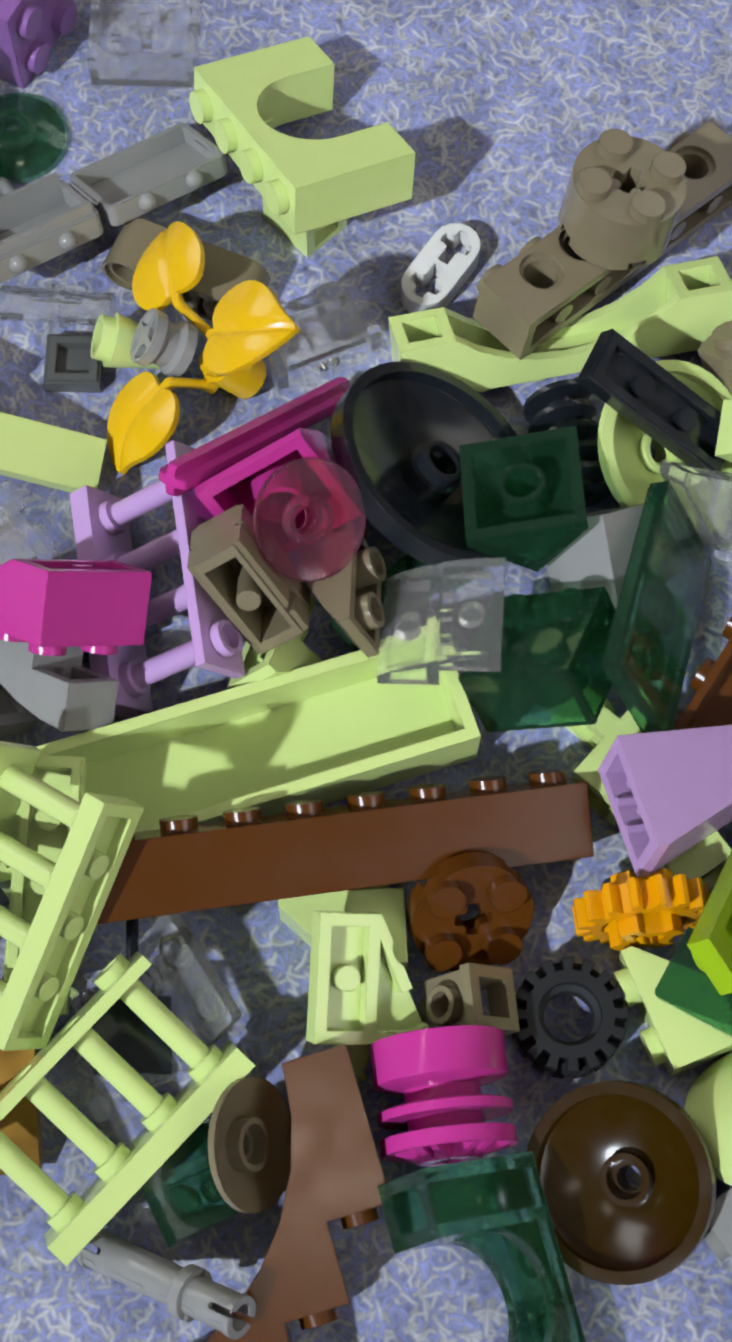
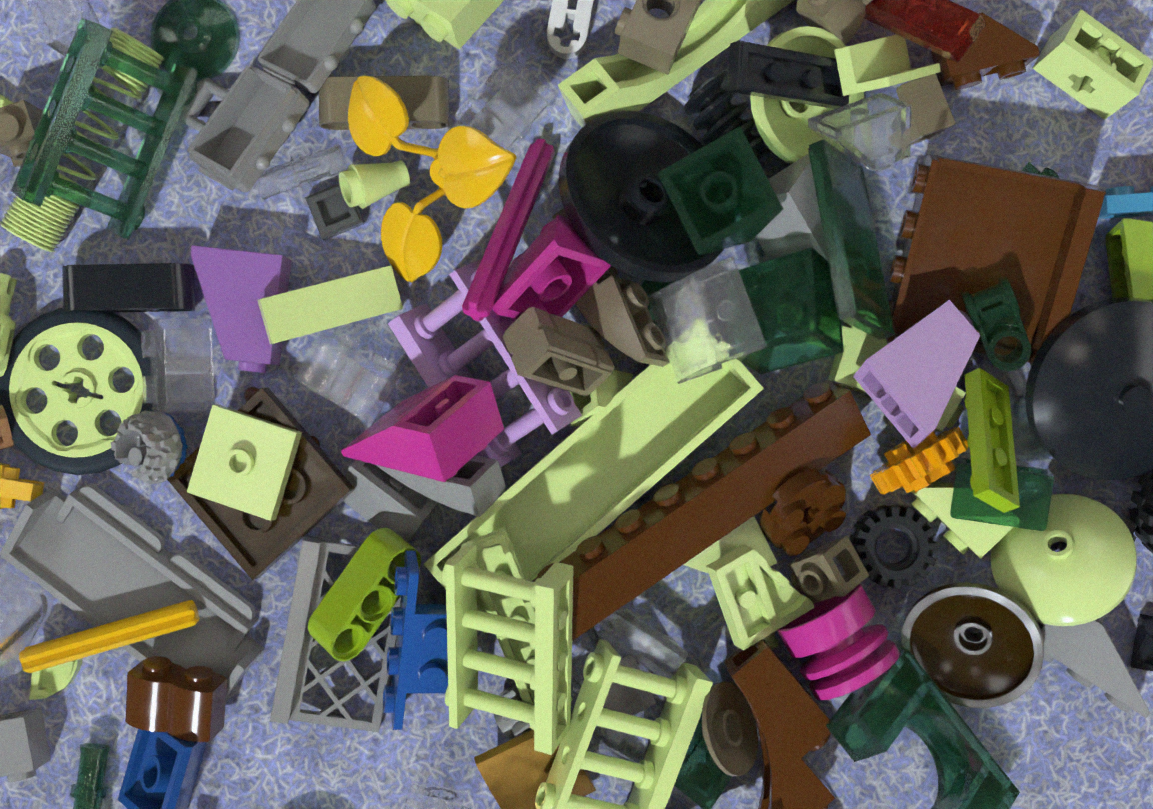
camera: 15 degrees left, 20 degrees up
(164, 343) = (401, 178): light grey wheel -> none
(331, 524) = (599, 300): clear pink dish -> none

